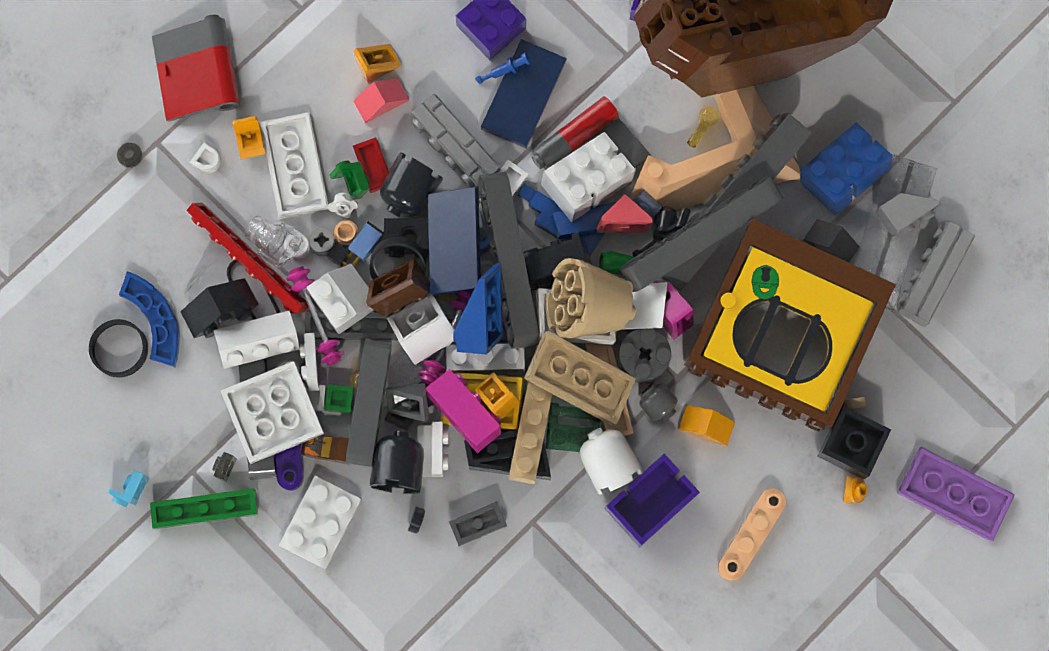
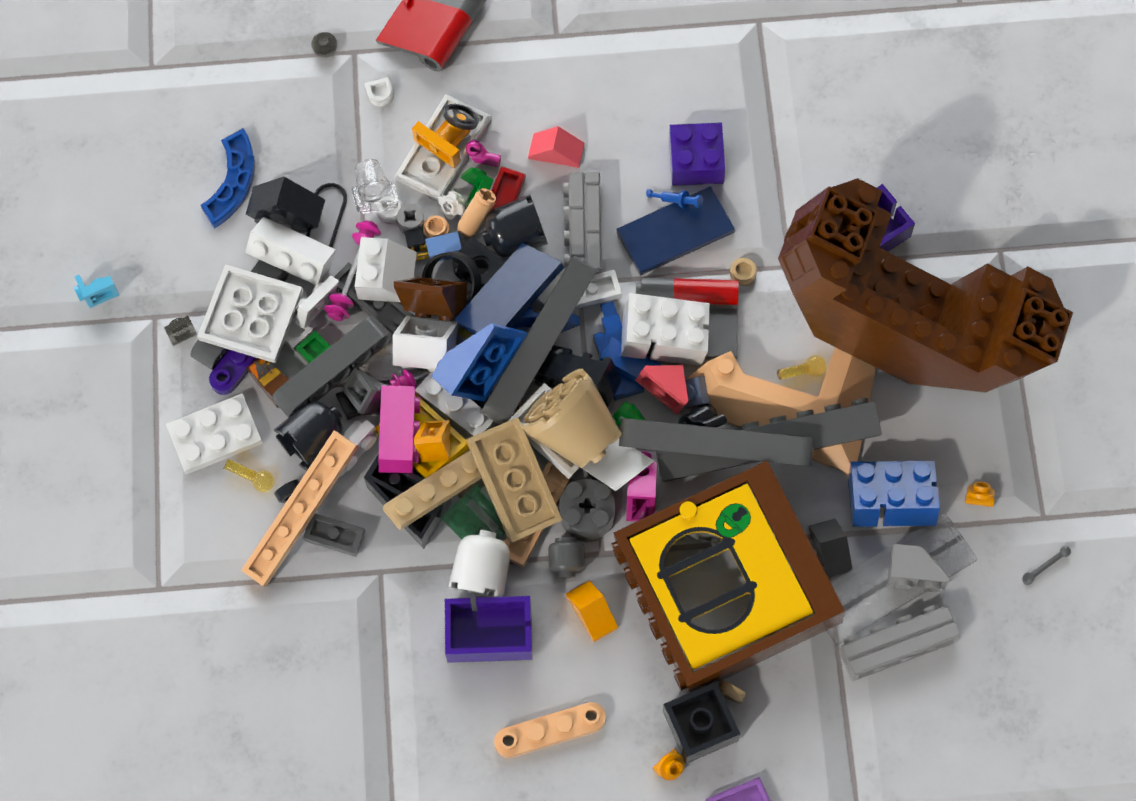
camera: 45 degrees right, 10 degrees down
(102, 328) = (180, 156): black tyre -> none
(203, 508) = (136, 350): green plate -> none
(240, 251) = (342, 184): red plate -> none
(249, 137) = (426, 98): light orange bracket -> none
(292, 152) = (449, 135): none -> light orange piece
(329, 149) = (480, 155): none -> dark pink arm
(370, 198) = (476, 213): none -> light nougat piece
(376, 61) = (577, 115): light orange slope -> none
(387, 528) = (262, 480): none -> clear yellow bar
(441, 526) = (300, 508): none -> light nougat plate
(598, 85) = (744, 271): none -> tan tile
(900, 120) = (980, 494): none -> light orange plate
(980, 155) = (1029, 577): none -> dark grey hinge

